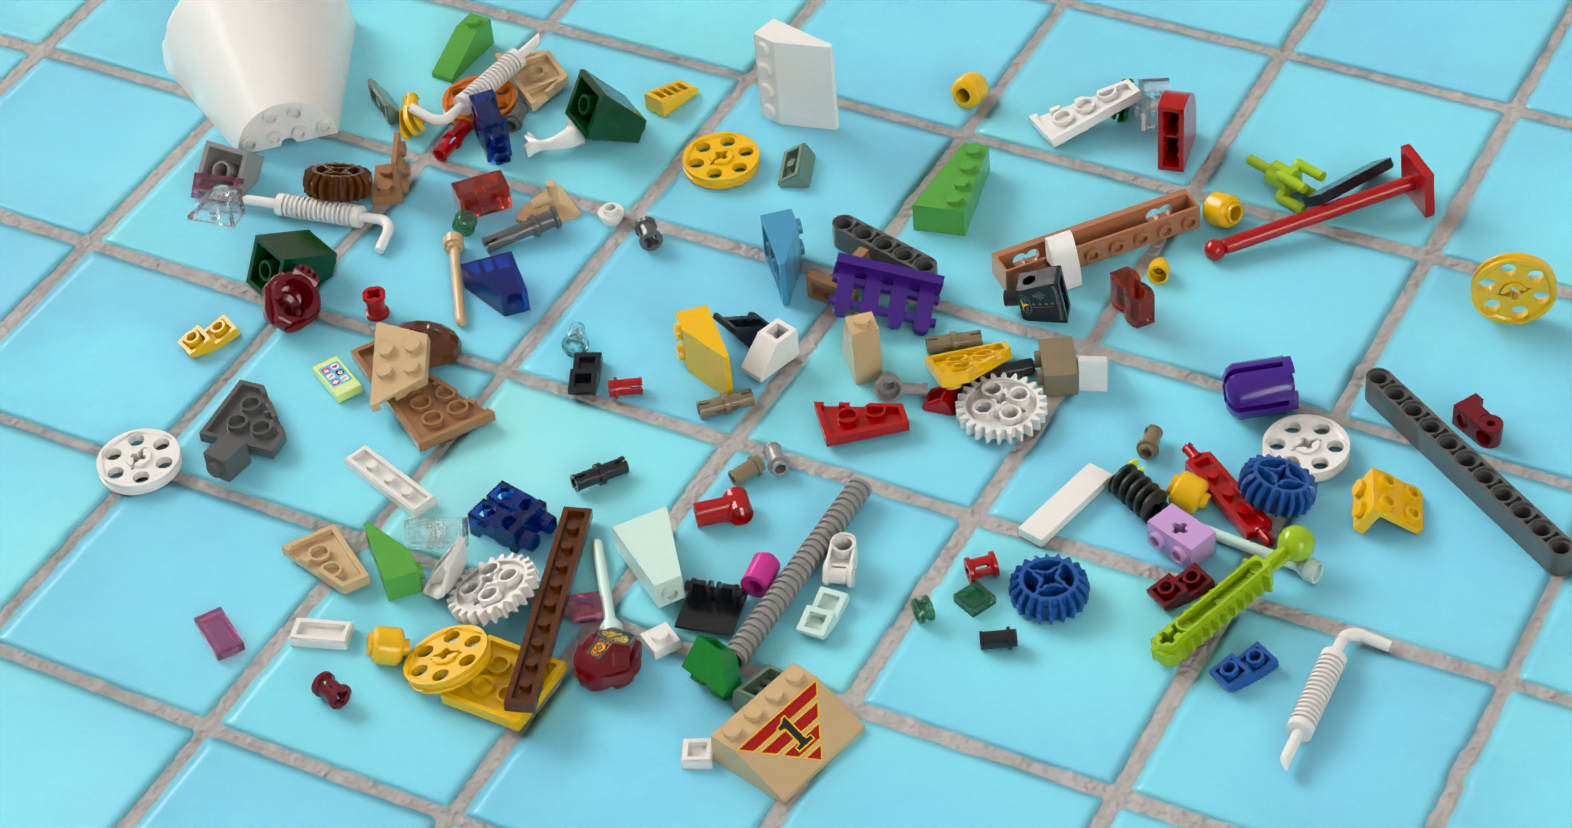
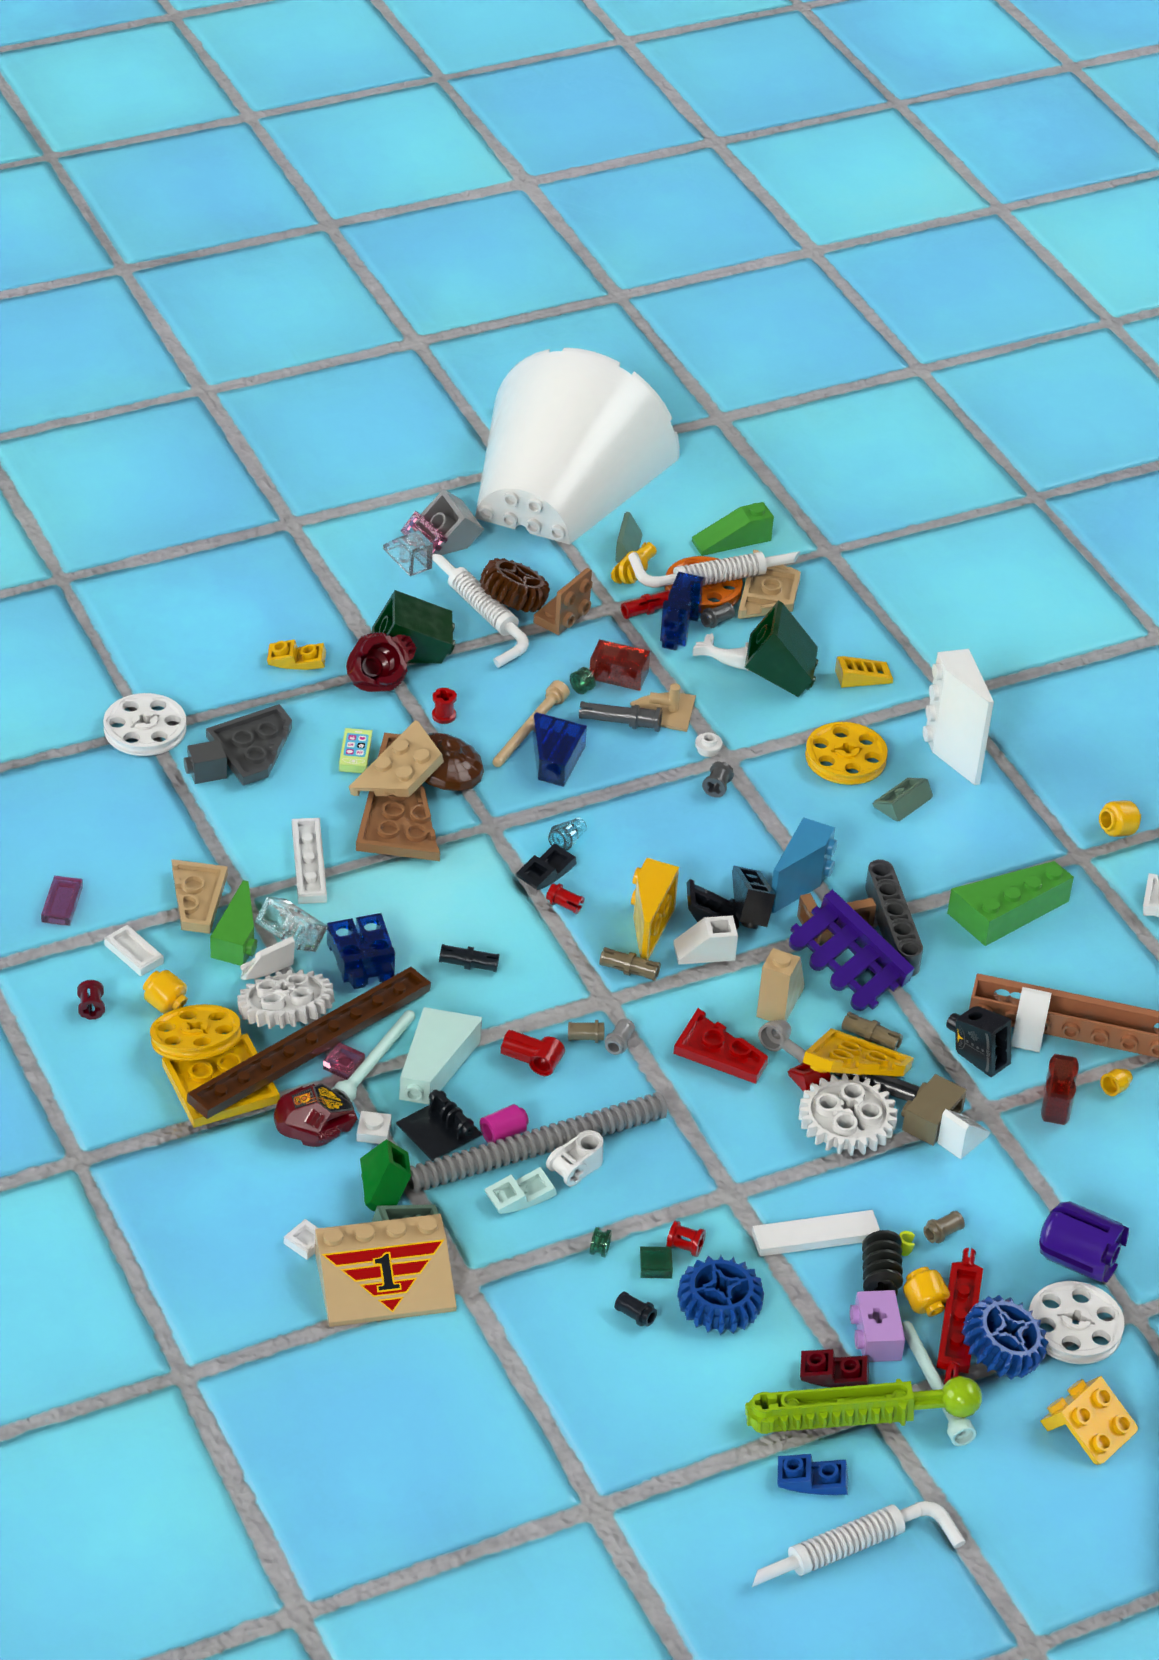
camera: 30 degrees right, 0 degrees up
(768, 299) = (752, 897): none -> black slope

